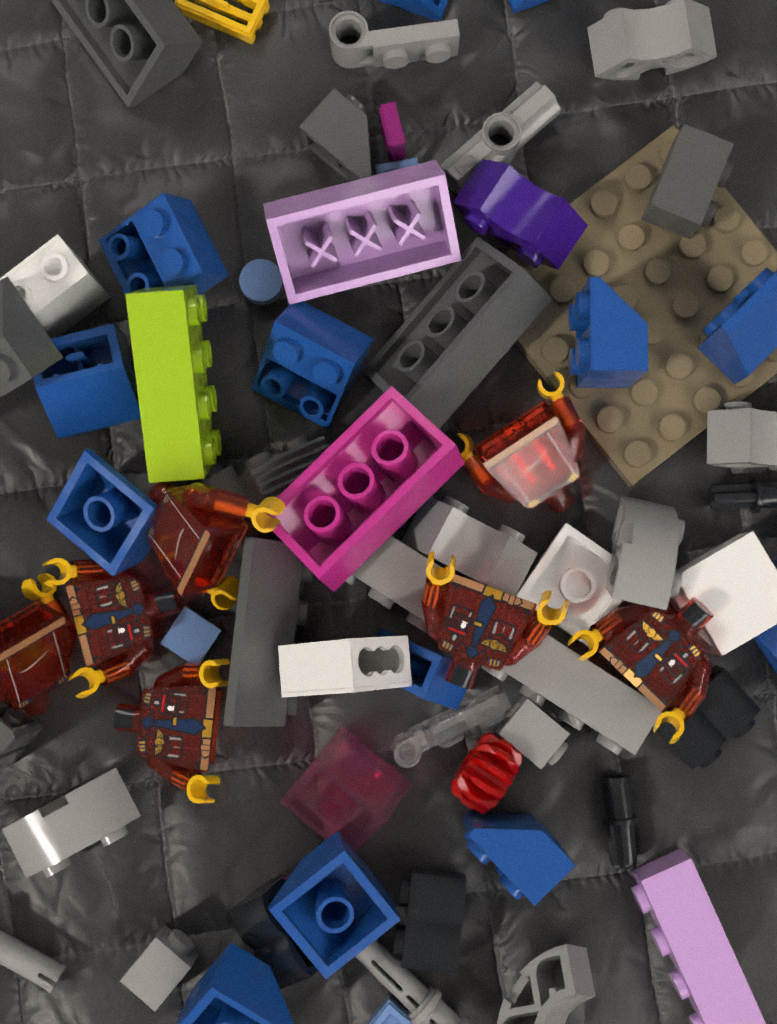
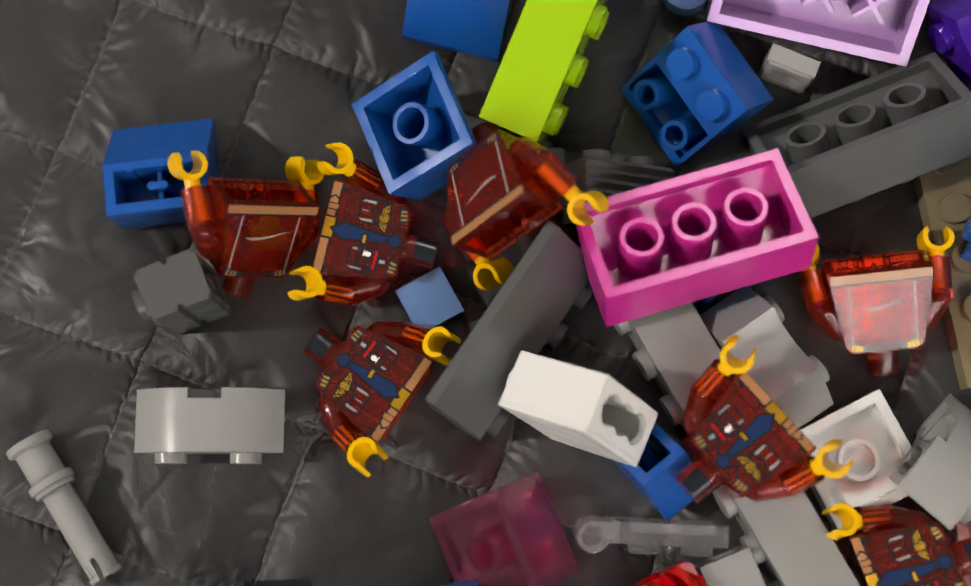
camera: 25 degrees right, 5 degrees down
(373, 307) = (788, 69): none -> light grey tile

